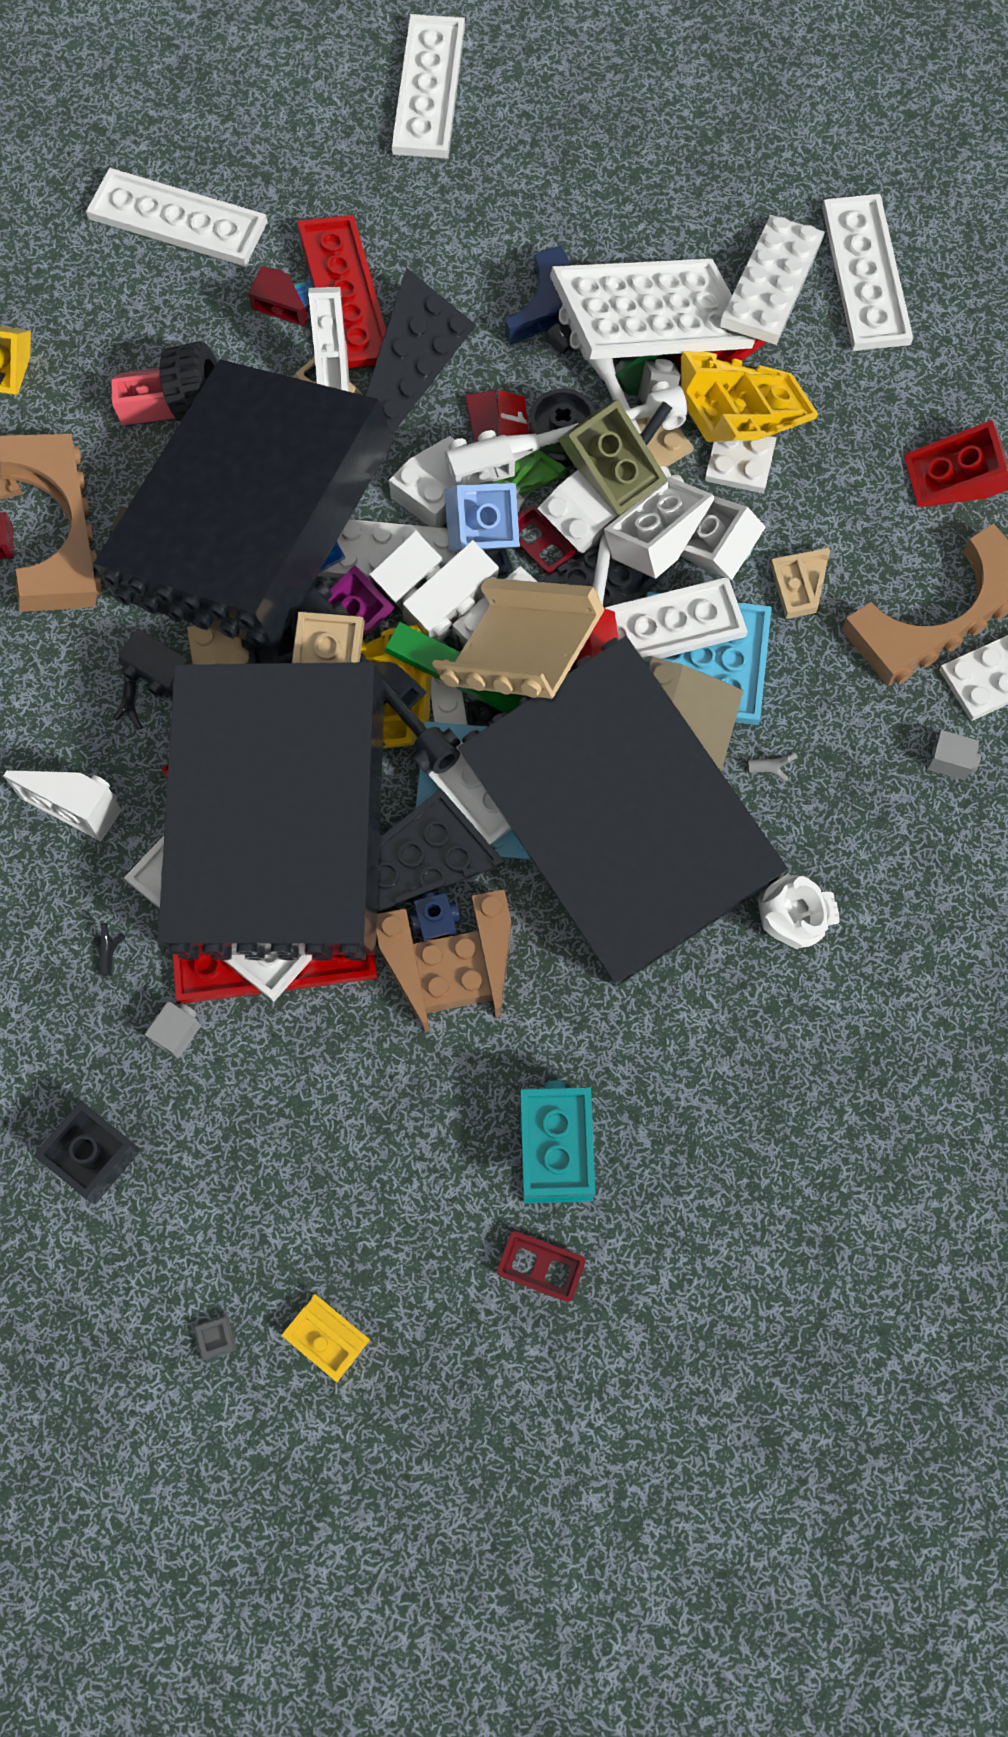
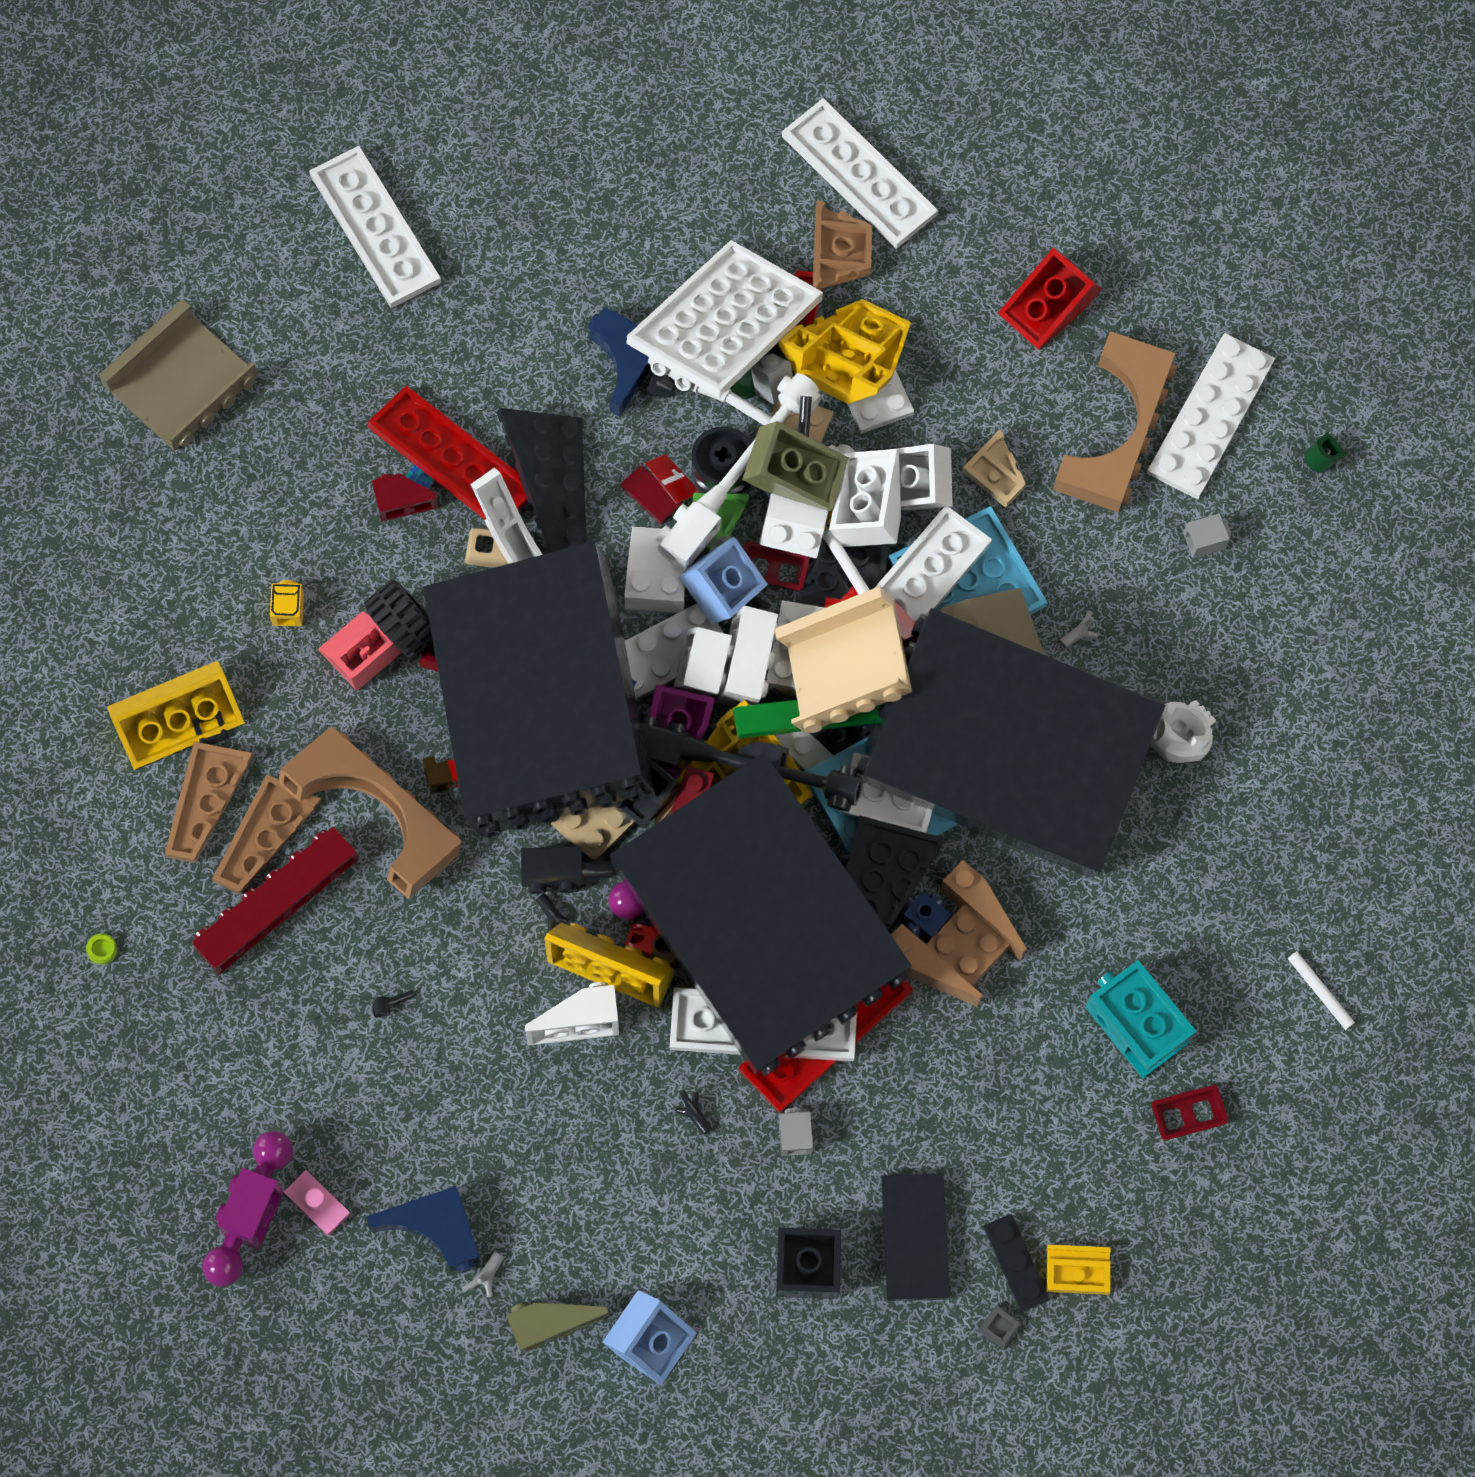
camera: 40 degrees left, 0 degrees up
(121, 322) = (286, 603): none -> yellow brick
(128, 763) = (605, 962): none -> yellow slope
(177, 216) = (254, 480): white plate -> none
(184, 104) = (177, 376): none -> dark tan panel
(203, 1199) = (915, 1237): none -> black tile
(275, 1290) = (1016, 1263): none -> black plate
(328, 638) = (696, 762): tan plate -> none
(756, 1241) = (1321, 990): none -> white bar
(772, 279) = (796, 229): white plate -> none
(811, 319) = (840, 247): none -> medium nougat wing

